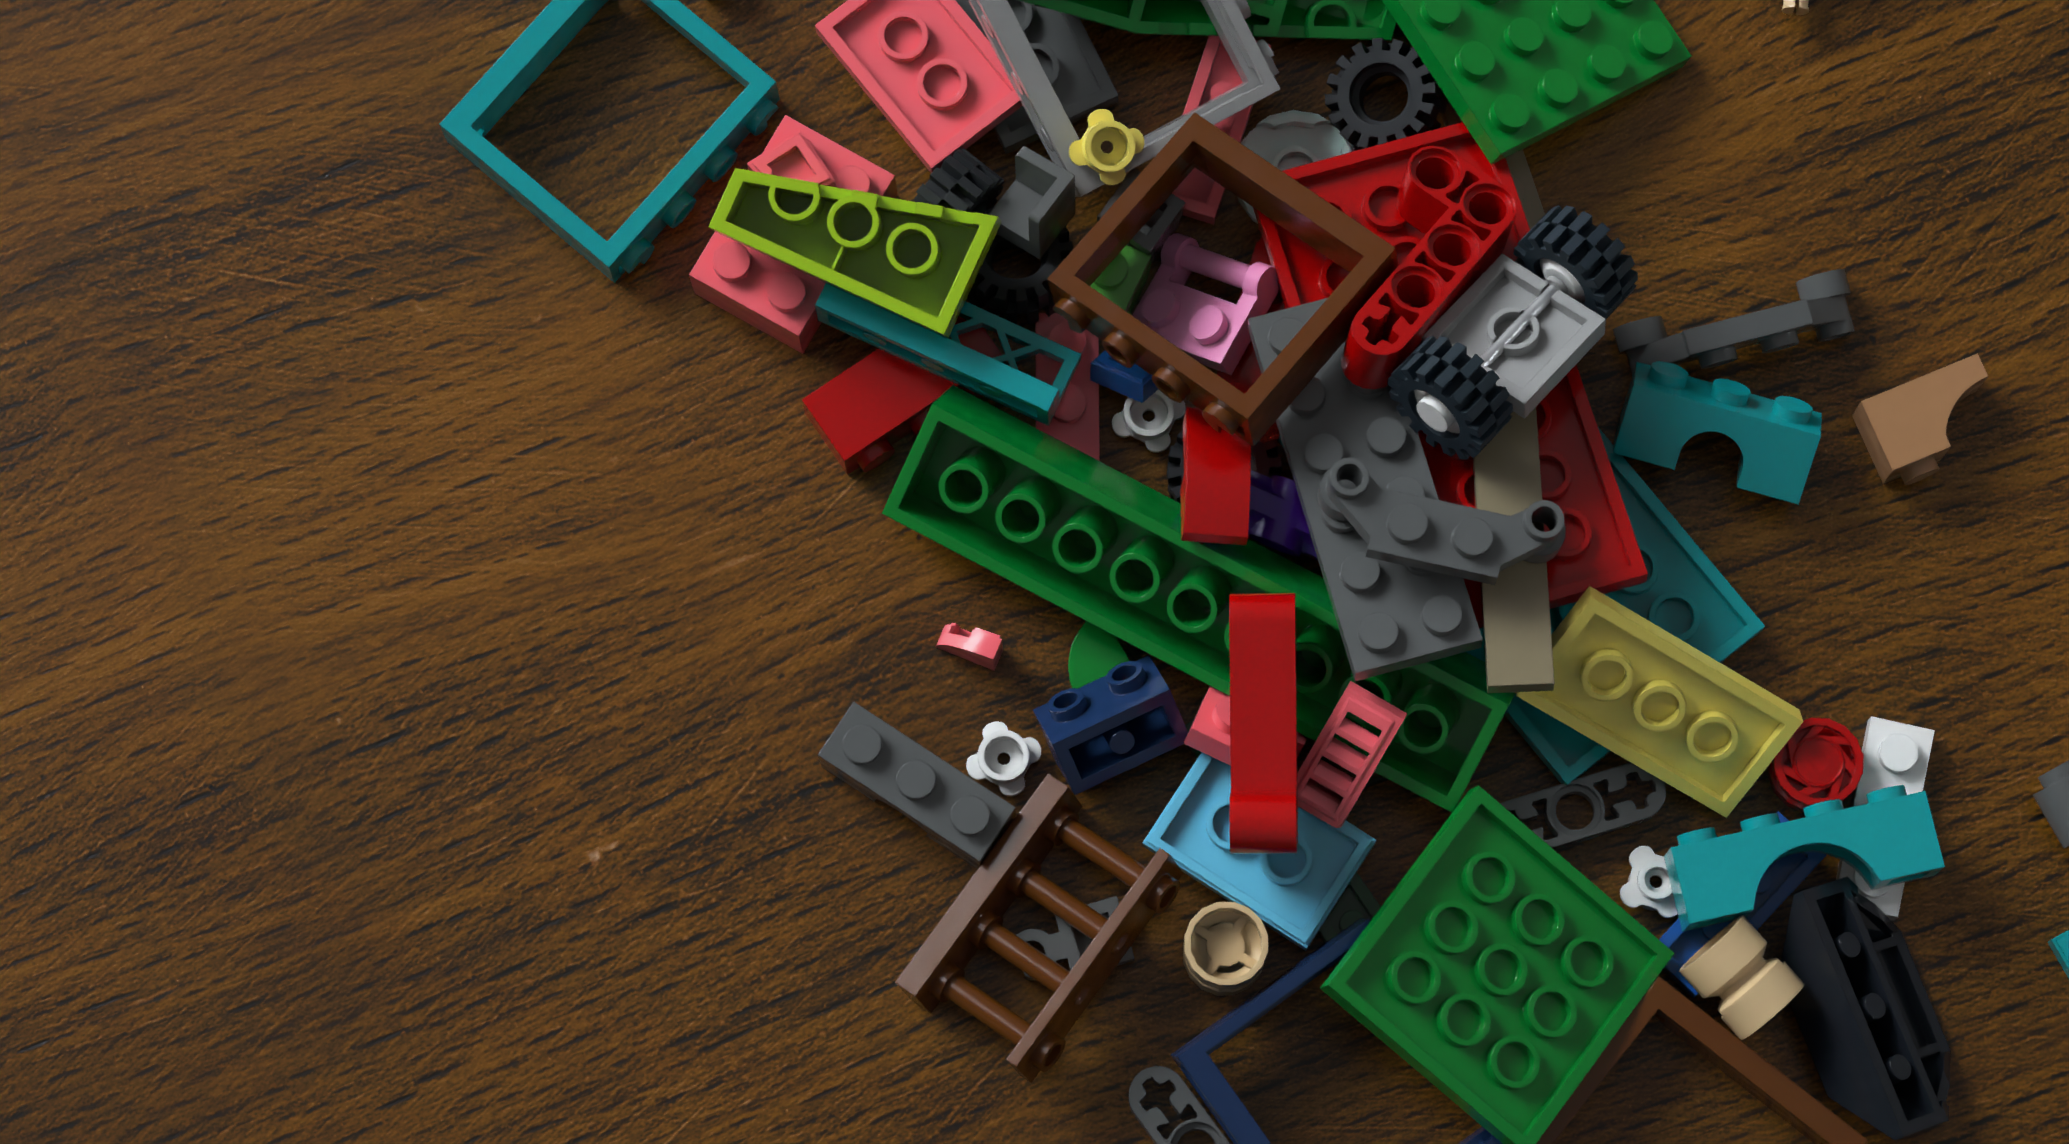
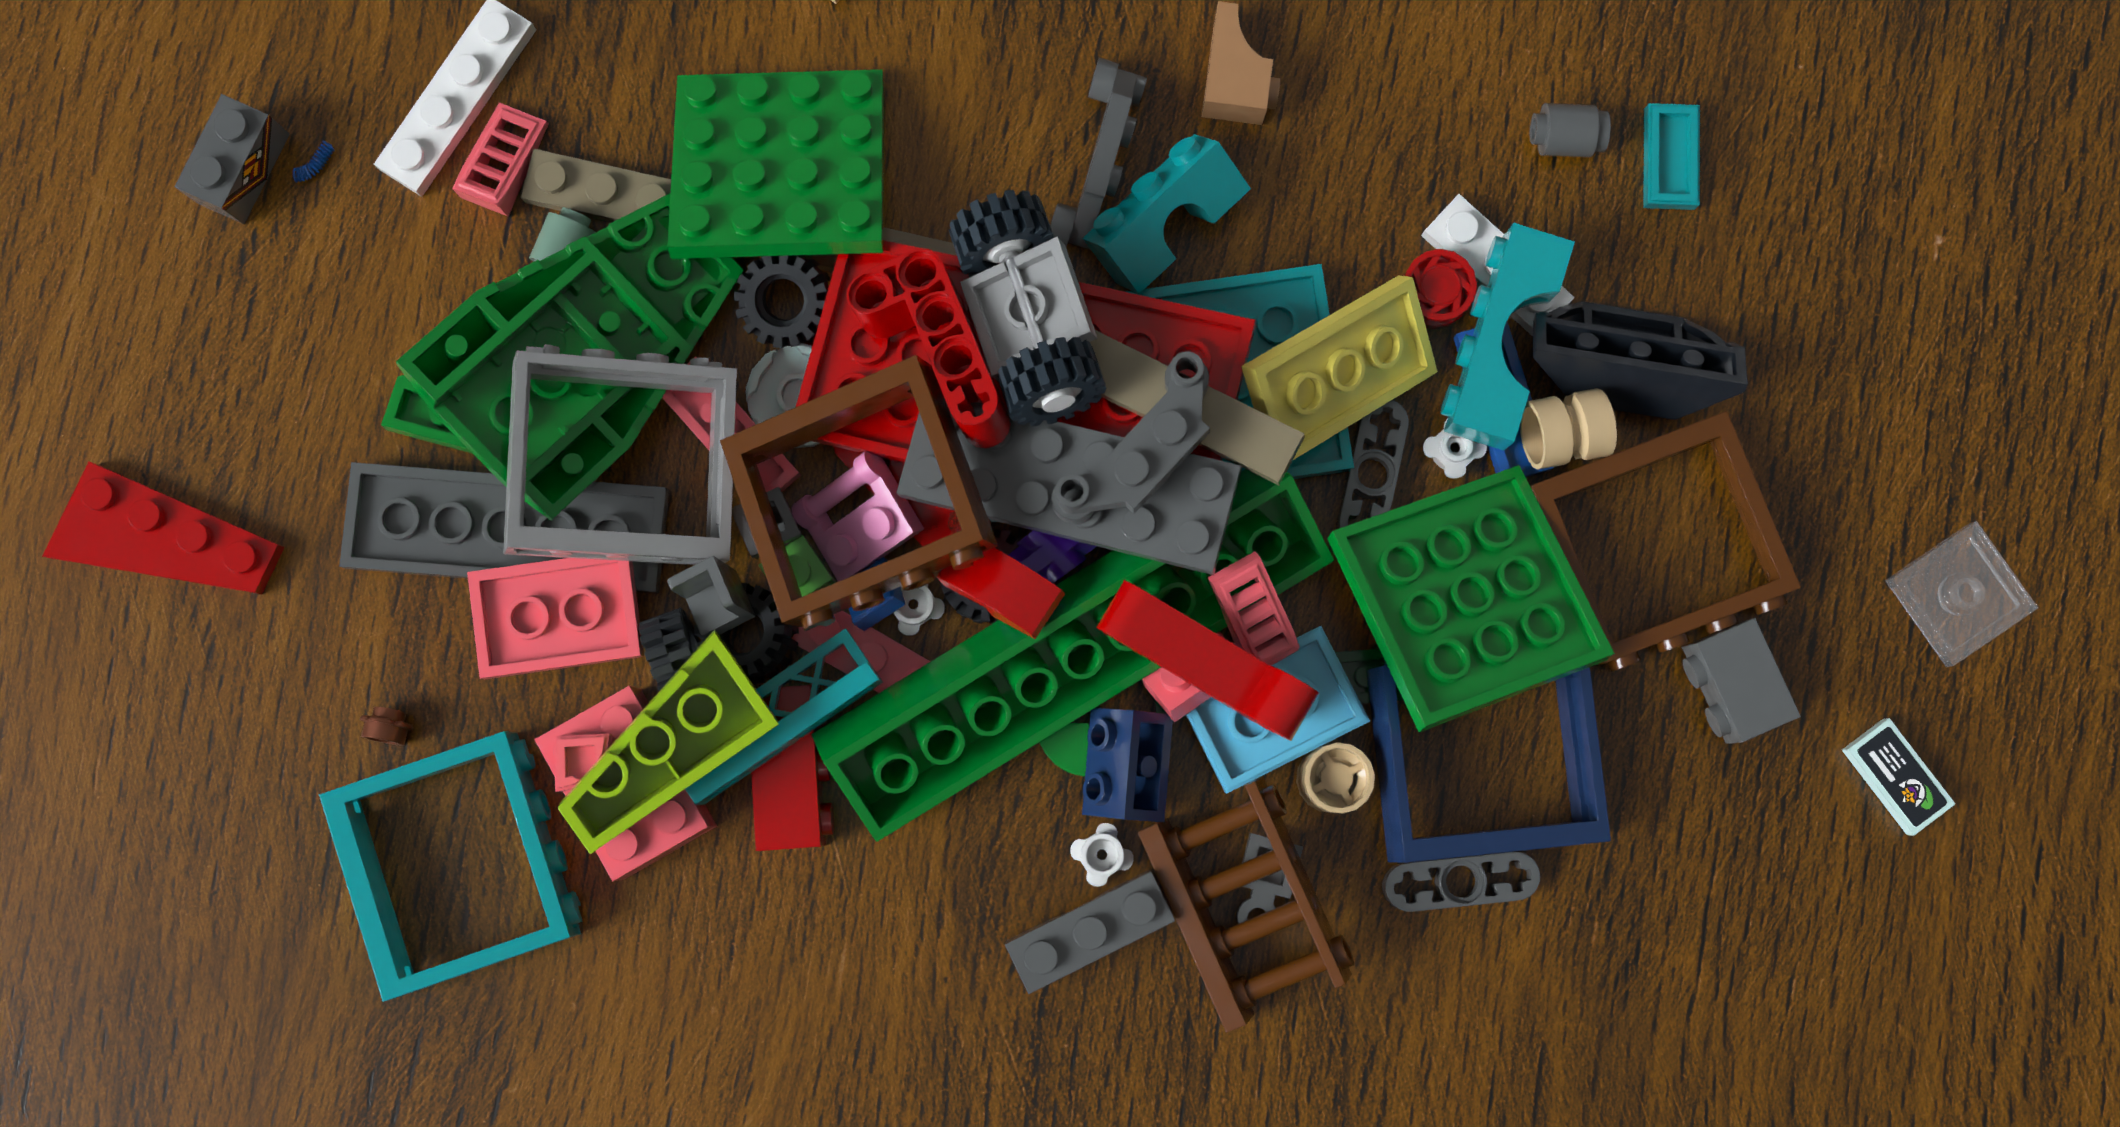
camera: 65 degrees left, 5 degrees up
(975, 646) = (1004, 830): coral tile -> none
(1124, 145) = (709, 504): light yellow plate -> none

